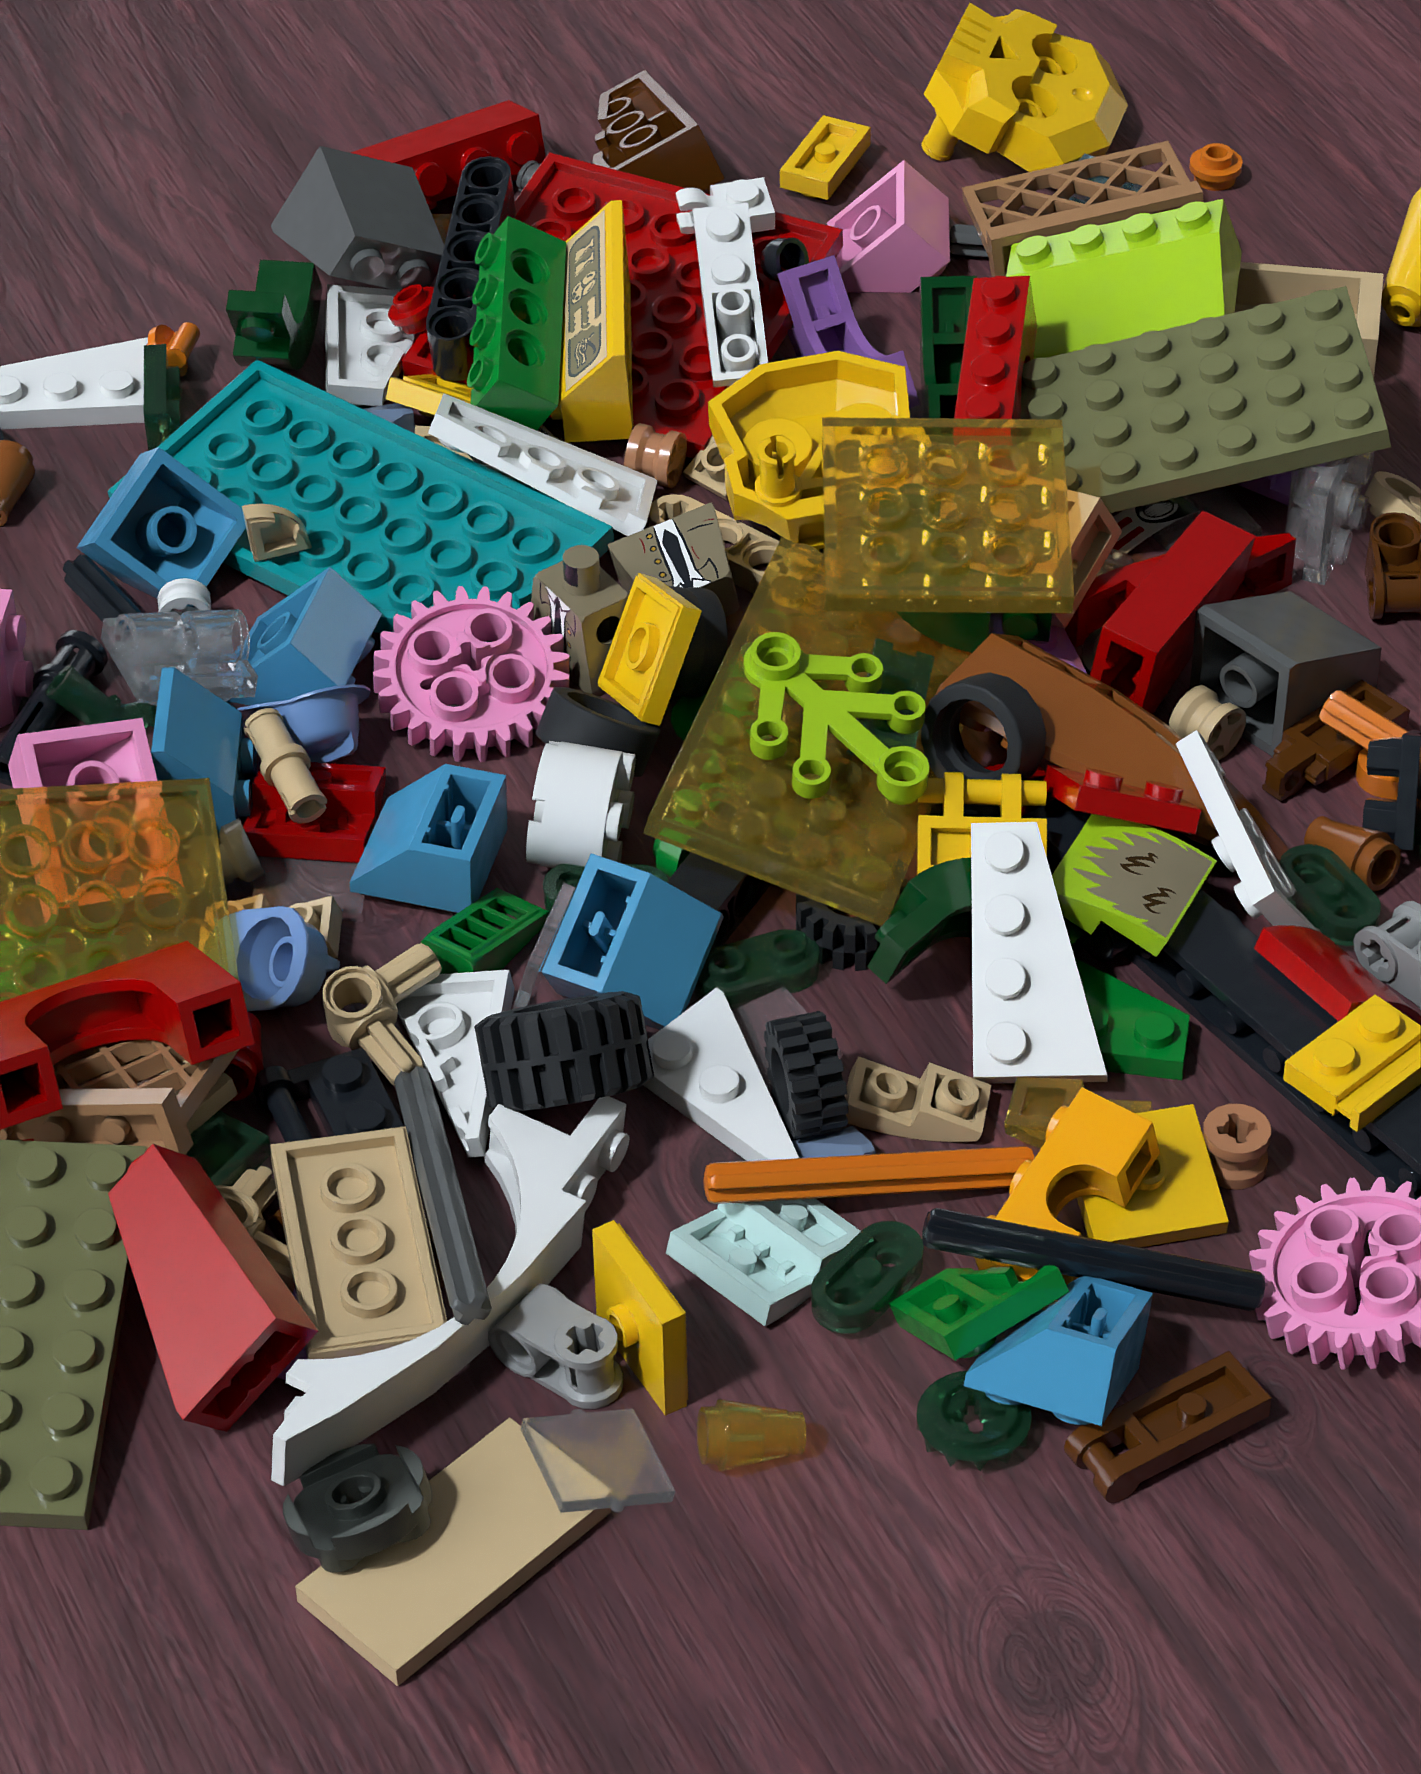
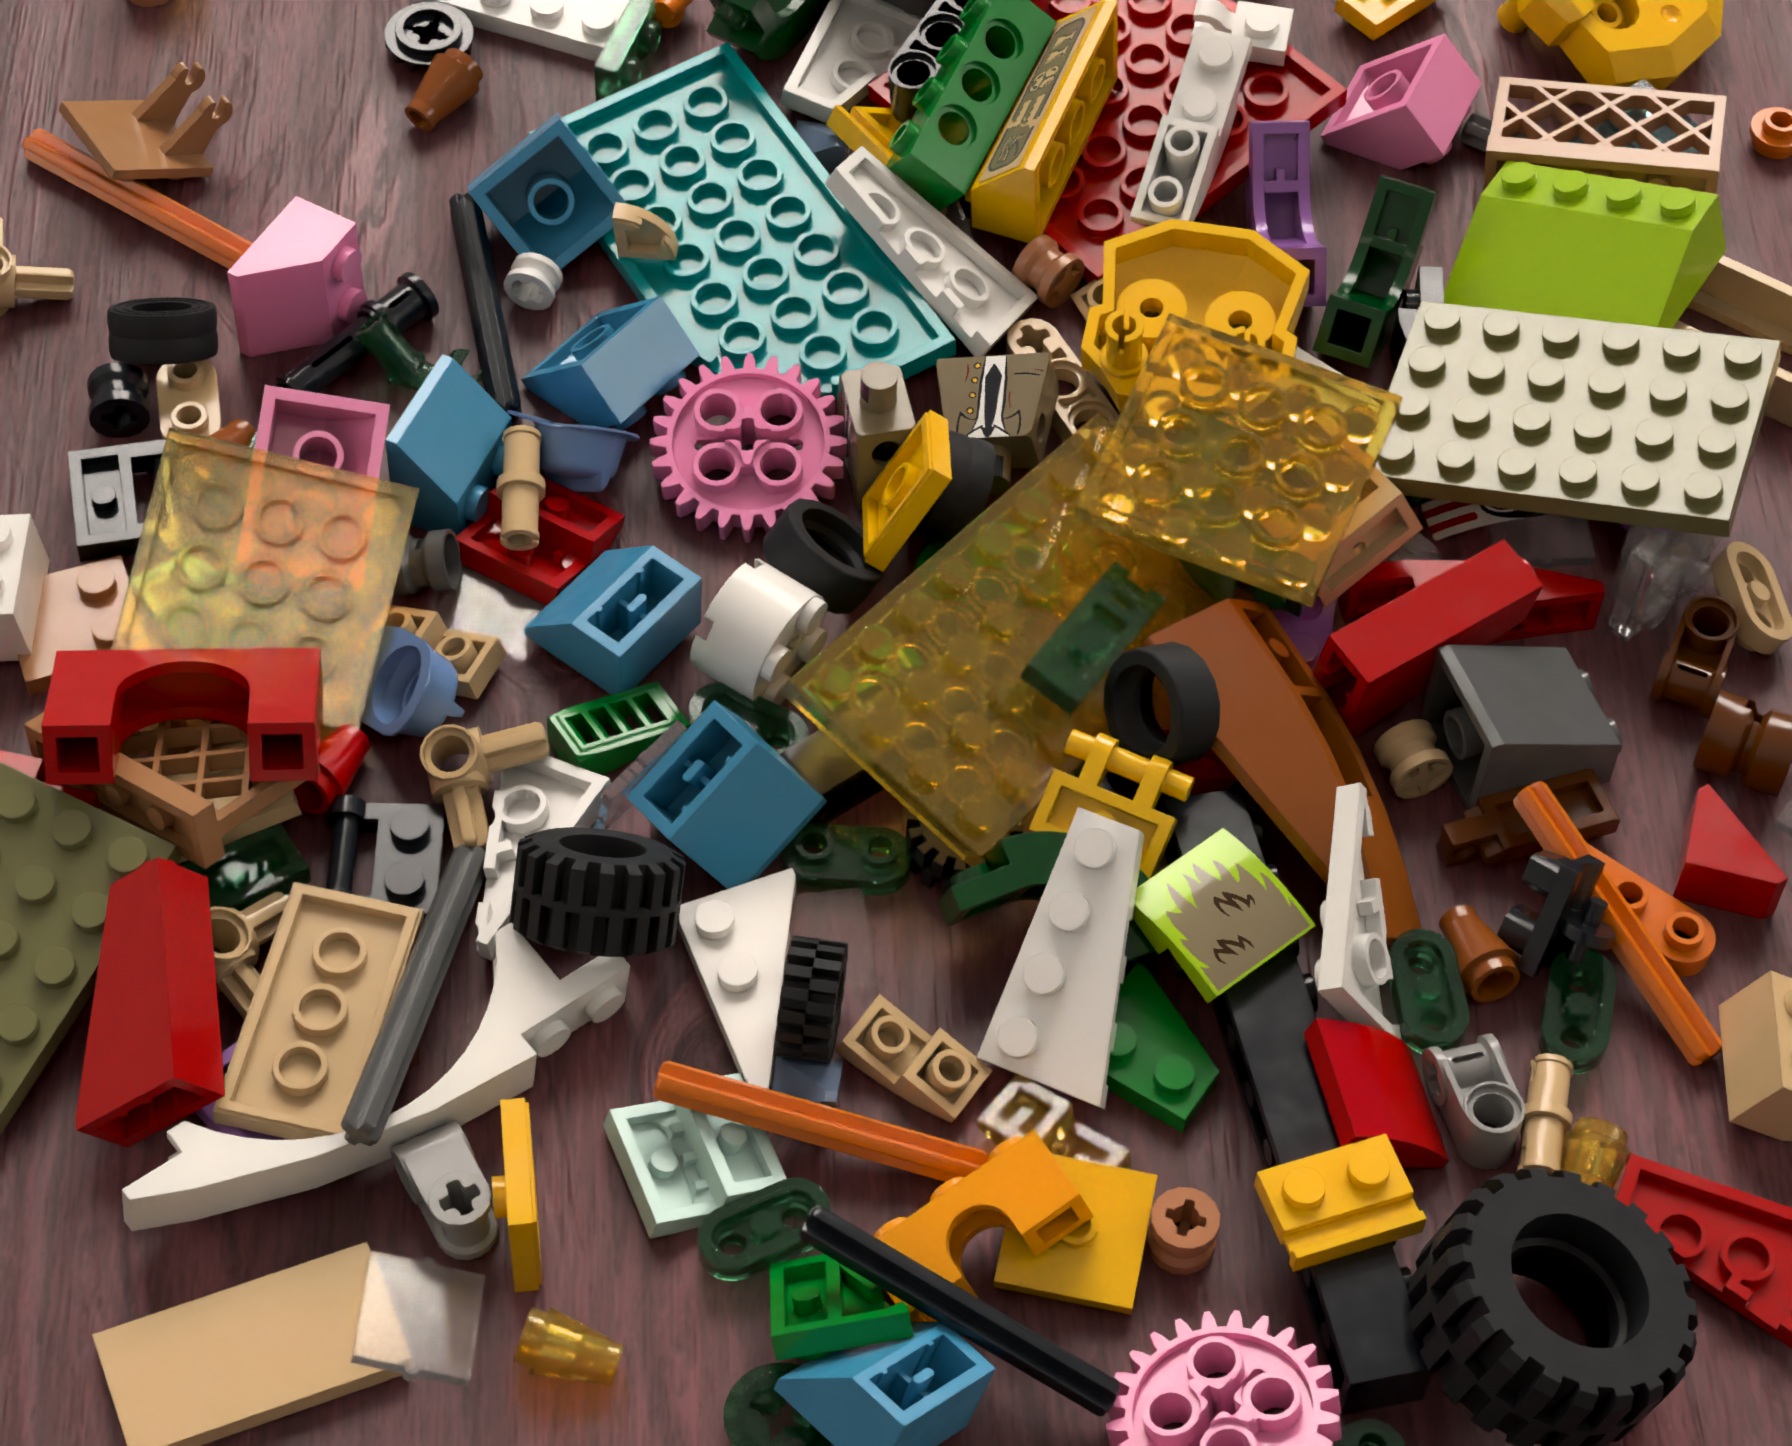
camera: 20 degrees right, 10 degrees up
(201, 644) = (491, 335): clear plate -> none
(390, 1508) = (158, 1306): pearl dark grey plate -> none
(411, 308) = (896, 31): red plate -> none
(780, 666) = (1016, 633): lime plant -> none
(782, 253) = (1274, 98): black hinge -> none
(996, 347) = (1424, 263): red arch -> none
(1107, 796) = (1254, 826): red wing -> none

